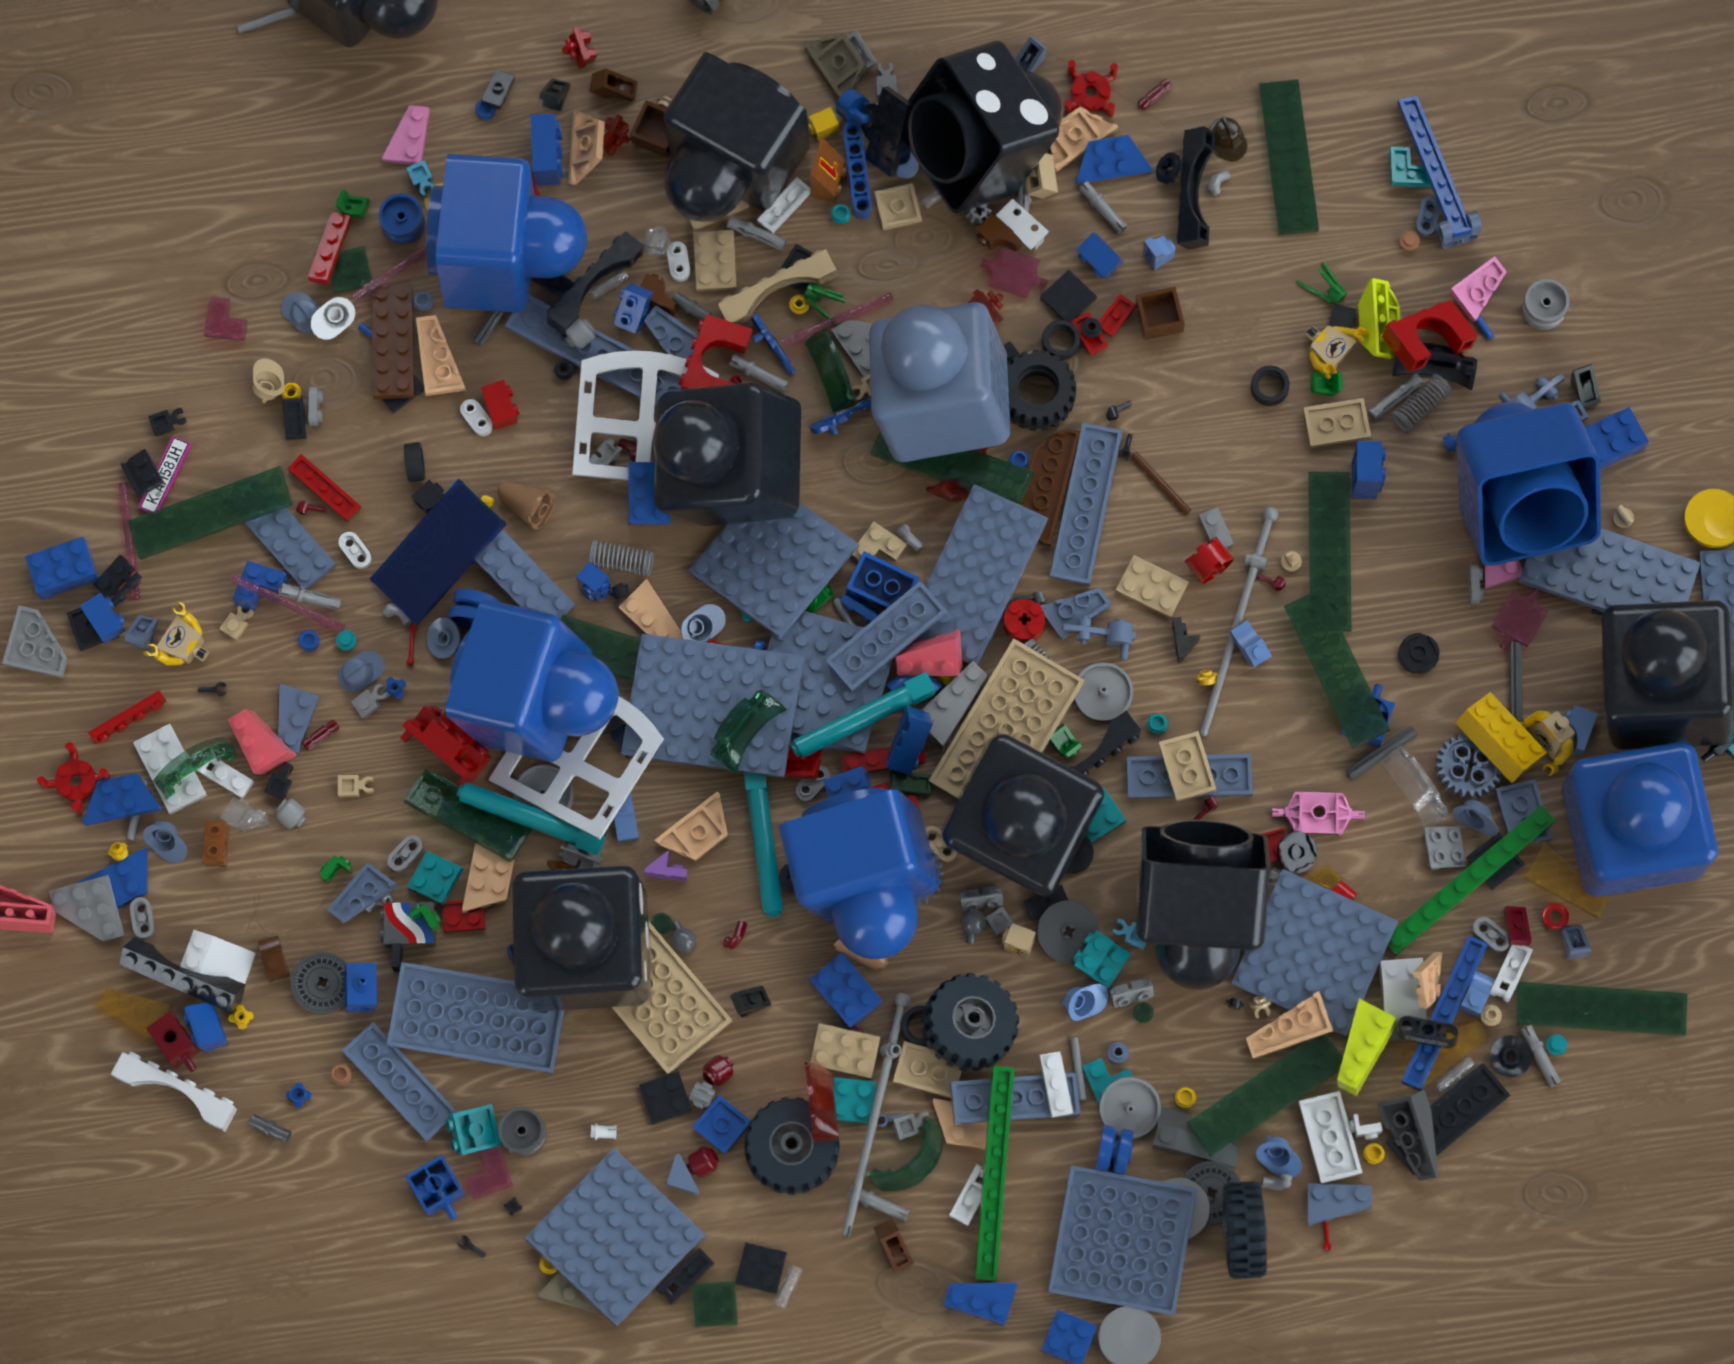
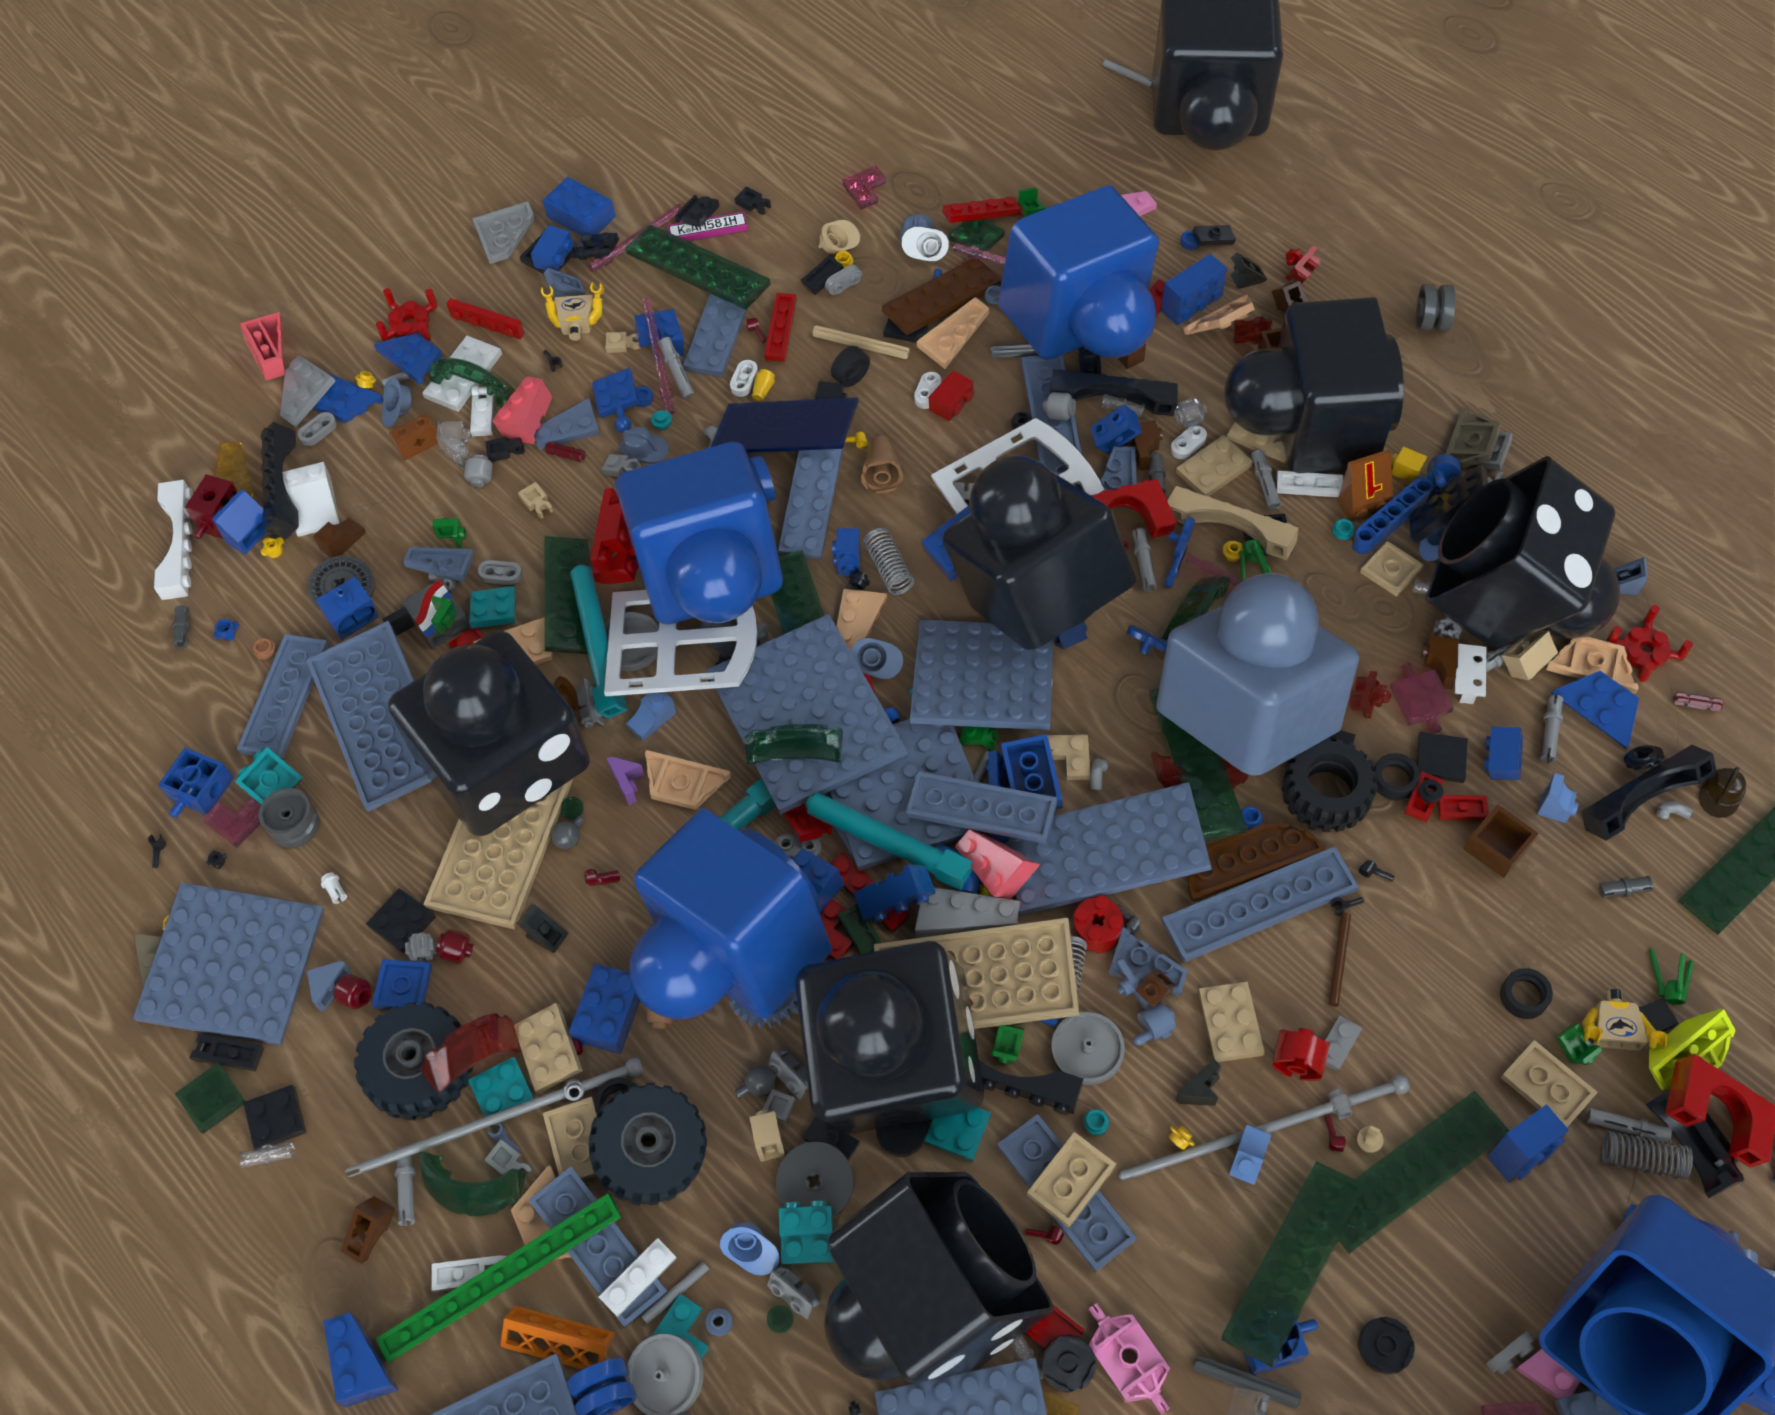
camera: 55 degrees right, 15 degrees down
(294, 661) = (616, 394): none -> blue plate
(373, 540) = (763, 382): none -> yellow cone
(387, 436) = (861, 342): none -> tan axle
(1054, 1159) = (555, 1329): none -> orange fence
(1100, 617) = (1155, 987): none -> reddish brown bracket
(1246, 260) = (1625, 886): none -> dark grey pin

